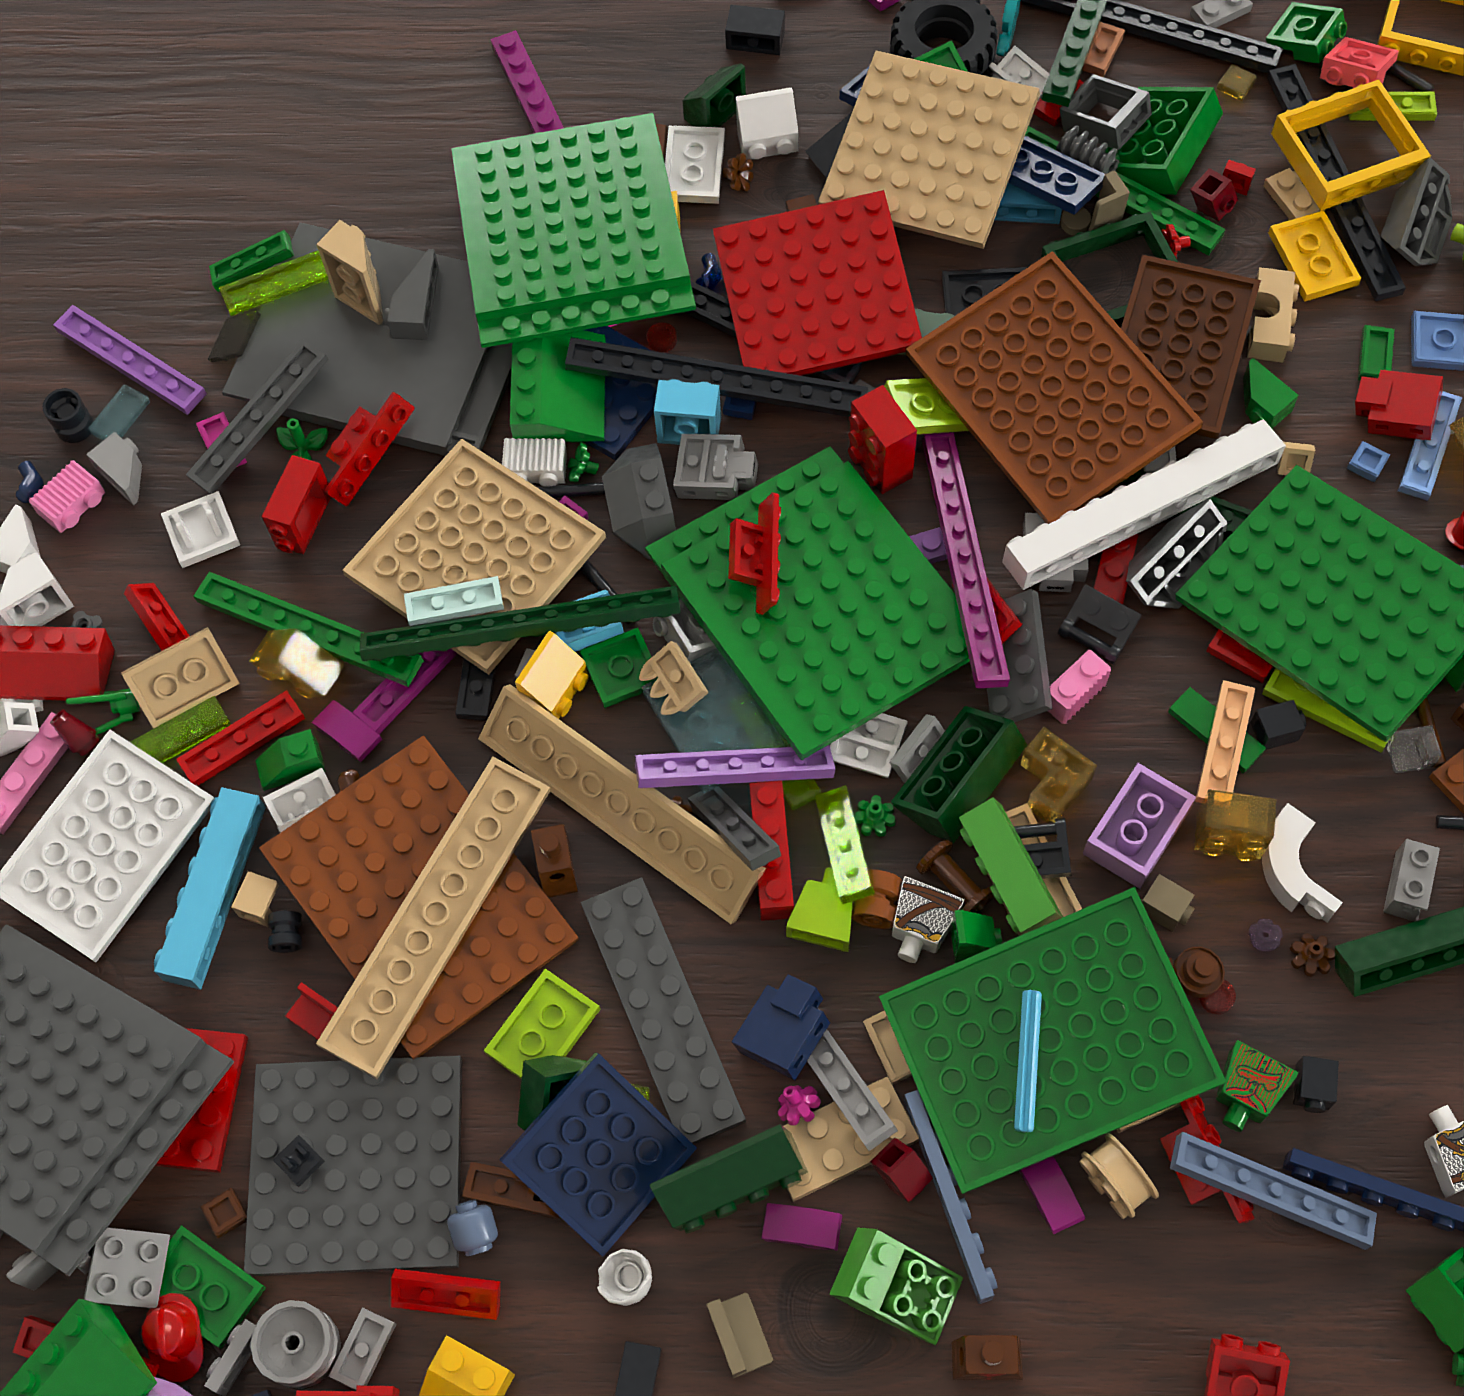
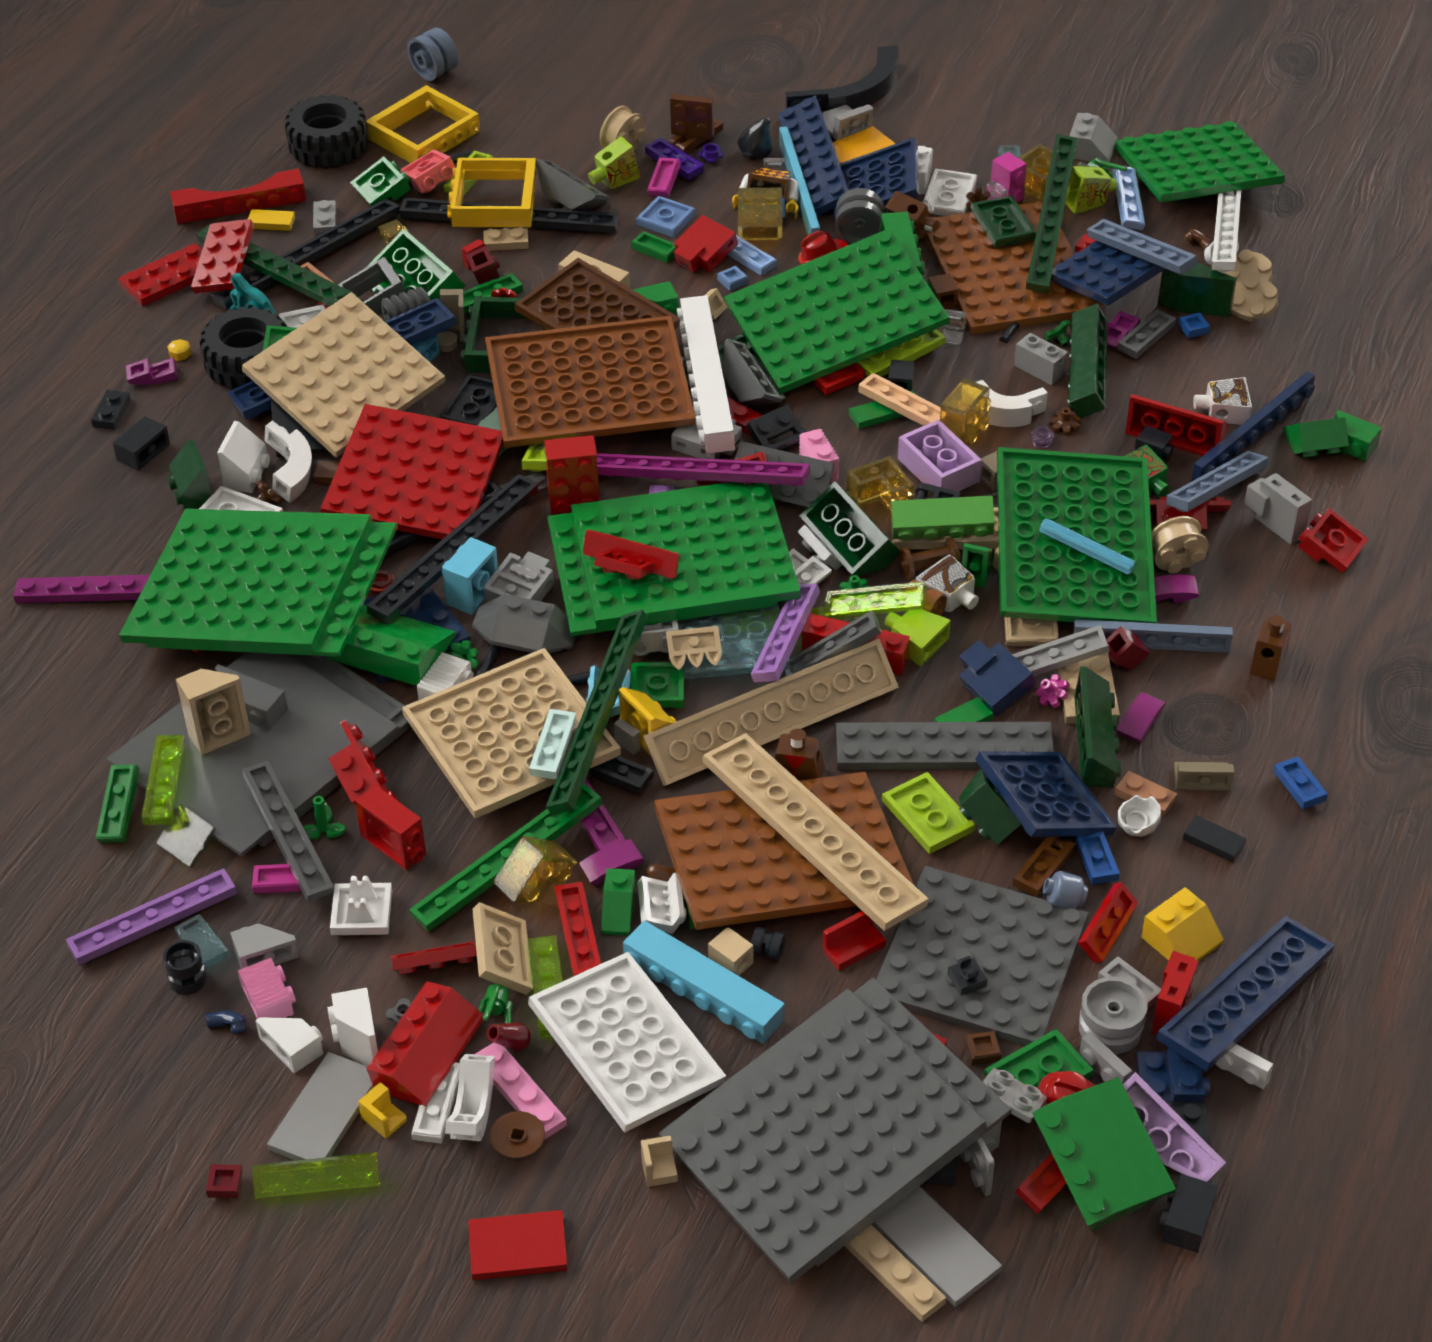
camera: 70 degrees left, 20 degrees down
(544, 1249) = (1097, 858): none -> blue plate
(678, 1274) = (1136, 785): none -> nougat plate
(718, 1015) = (969, 712): none -> green tile
(789, 180) = (295, 474): none -> white arch
(896, 1284) = (1199, 682): bright green slope -> none
(1265, 1289) = (1279, 506): none -> light grey piece
(1315, 255) = (558, 242): yellow plate -> none
(1368, 1100) = (1190, 430): none -> red slope

